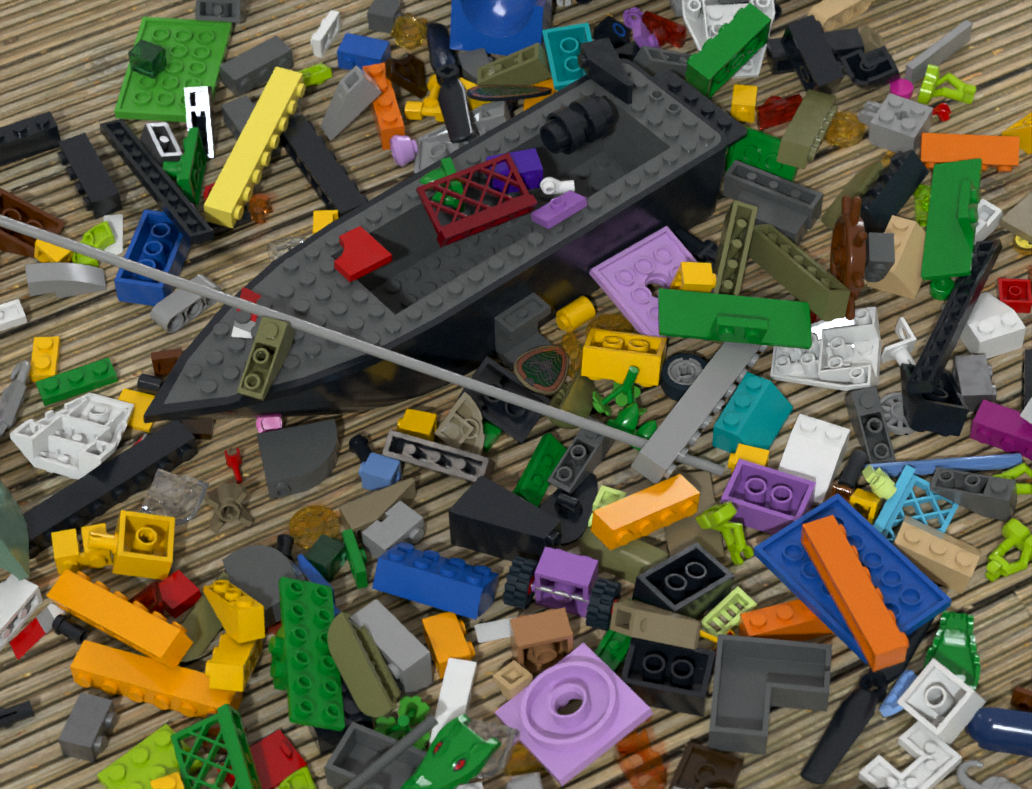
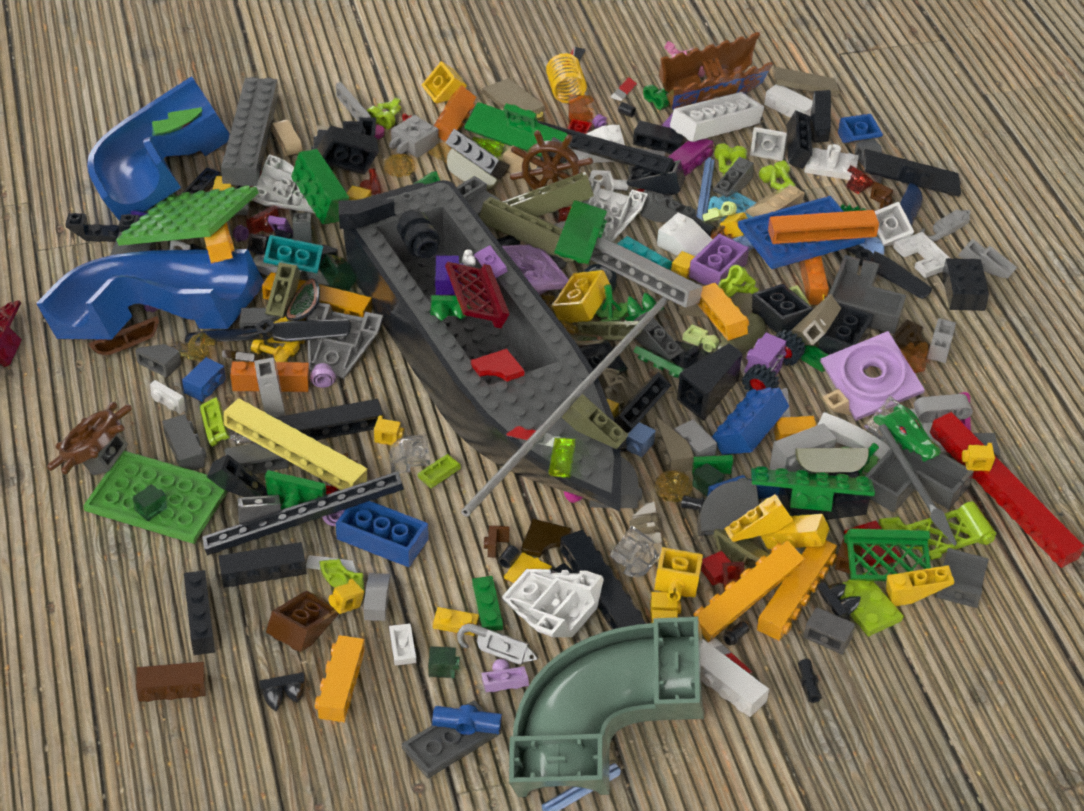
camera: 80 degrees left, 5 degrees down
(134, 726) = (831, 594): none -> black tile
(182, 306) = (439, 529): light grey beam -> none
(205, 341) = (562, 457): none -> clear neon green plate
(234, 462) = (597, 520): red hand -> none
(541, 639) = (811, 381): medium nougat brick -> none
(694, 277) = (544, 245): yellow brick -> none
(807, 129) = (420, 163): olive brick -> none

